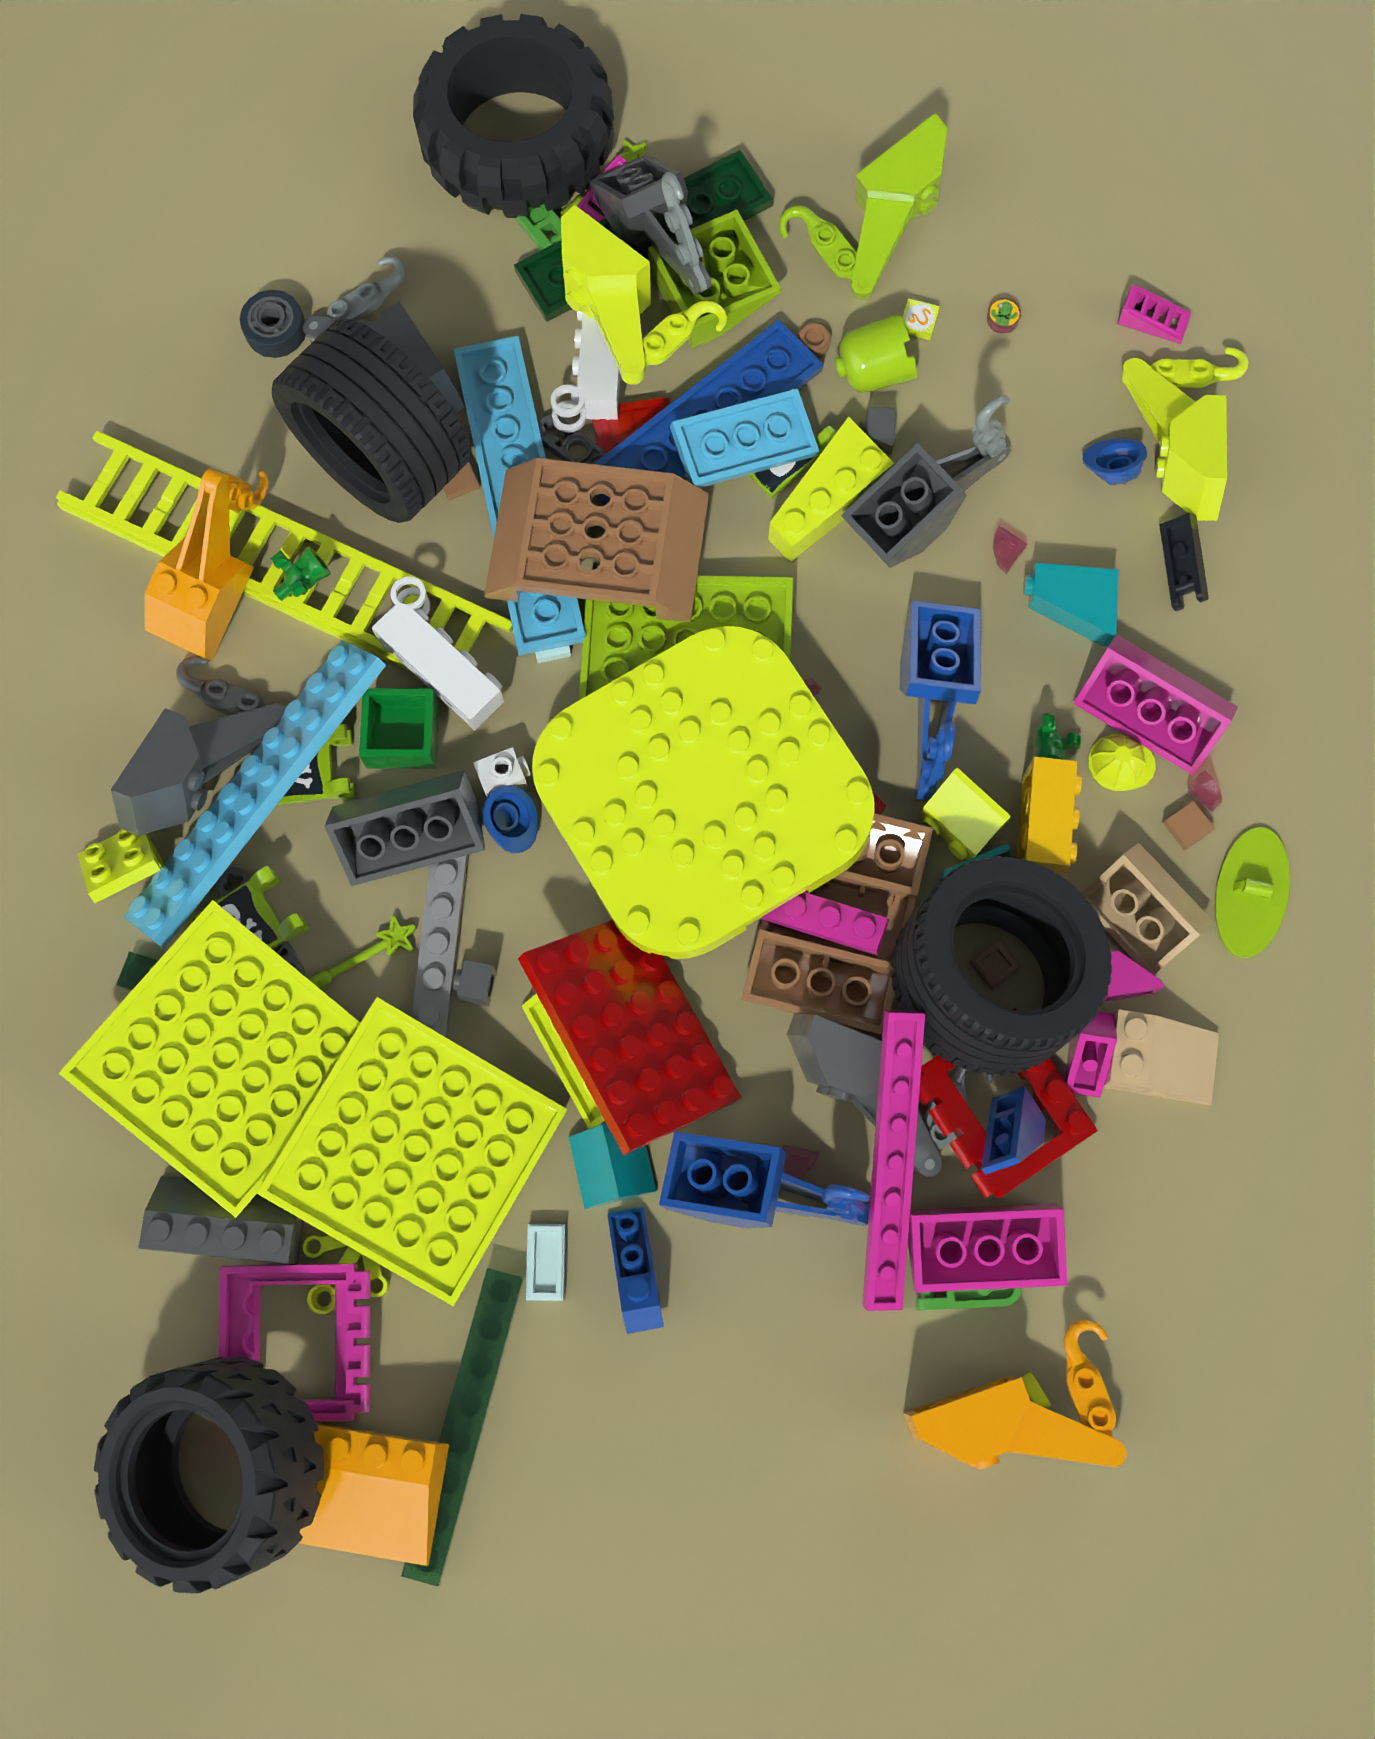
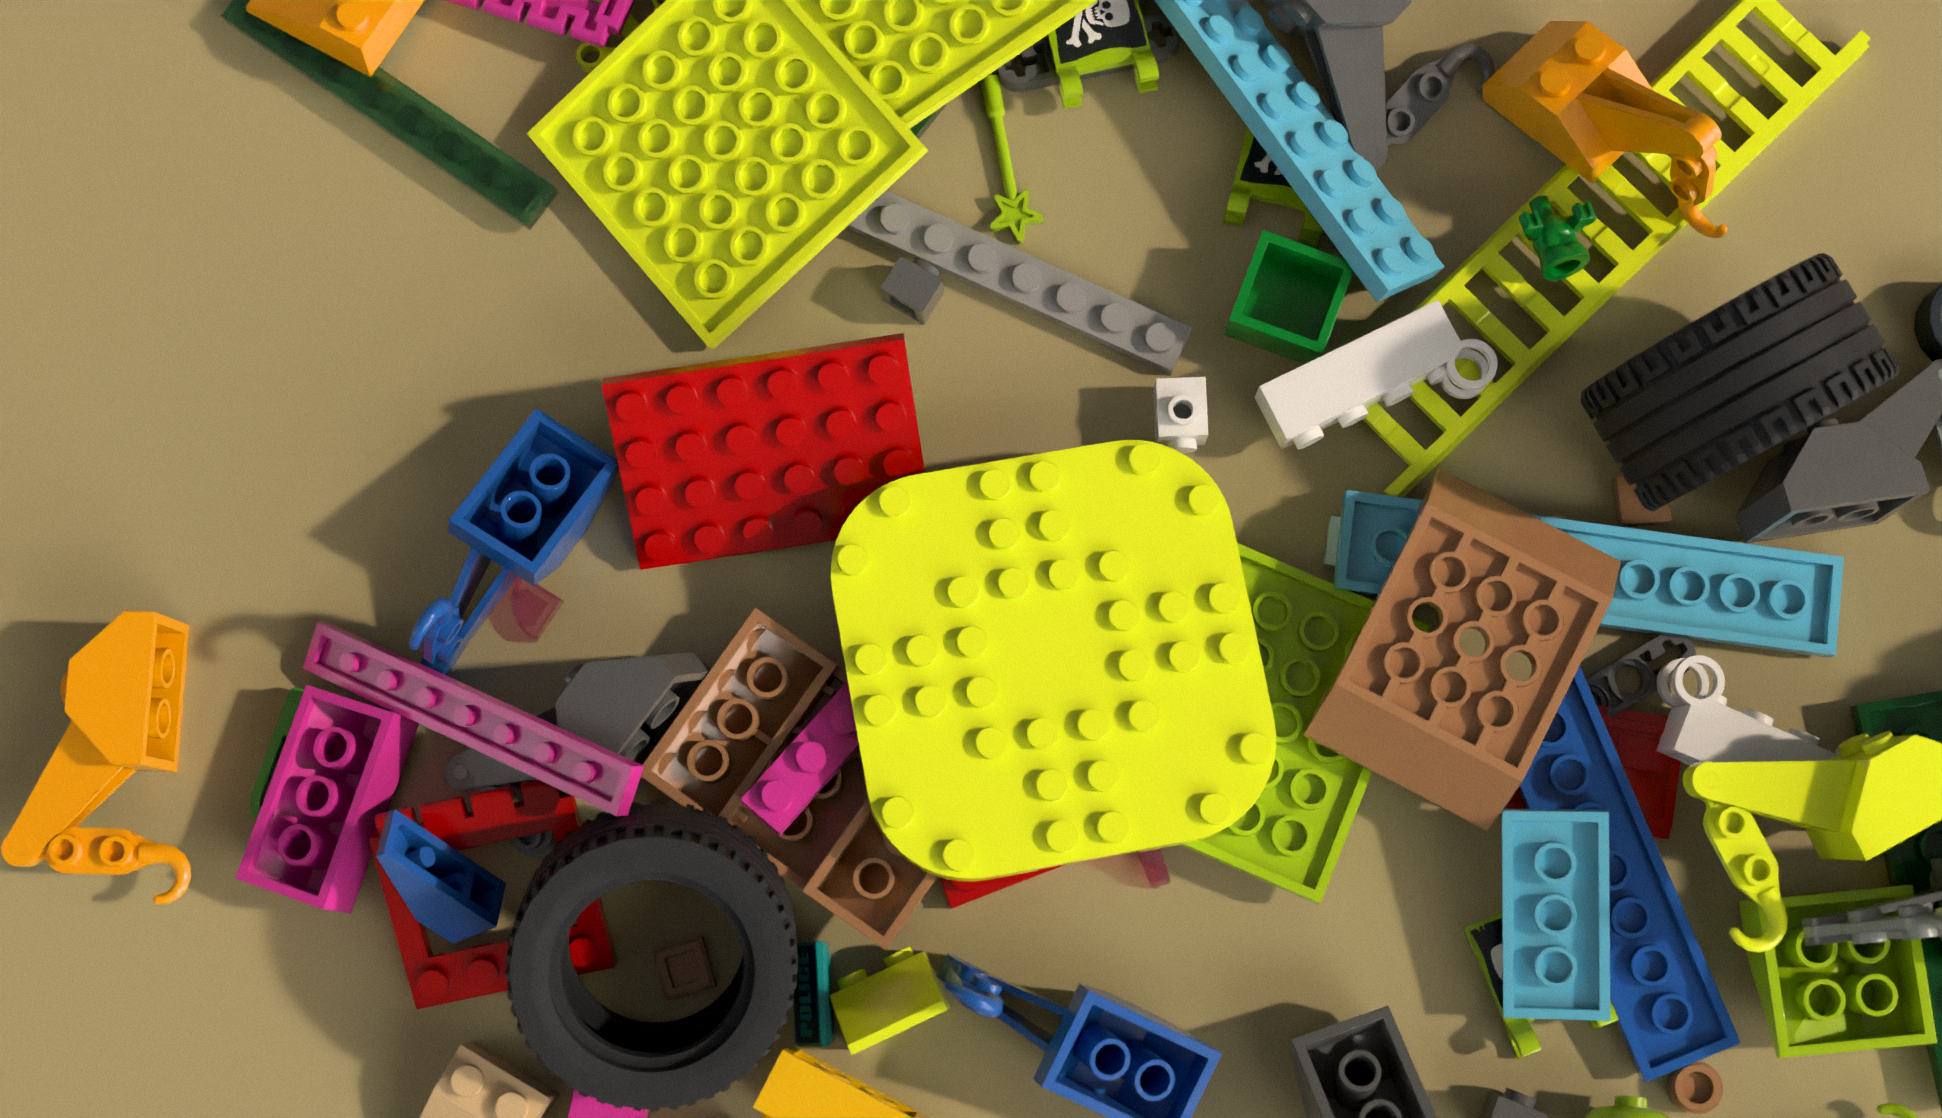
camera: 115 degrees right, 5 degrees up
(406, 828) = (1148, 265): dark grey slope -> none
(511, 818) = (1112, 402): blue piece -> none
(545, 1262) = (538, 262): light aqua tile -> none
(605, 1172) = (605, 356): teal slope -> none
(635, 1271) = (482, 361): blue slope -> none
(827, 490) = (1444, 1020): neon yellow wedge -> none
(1034, 1391) = (138, 789): neon yellow tile -> none
(1091, 1056) = (496, 1036): dark pink slope -> none

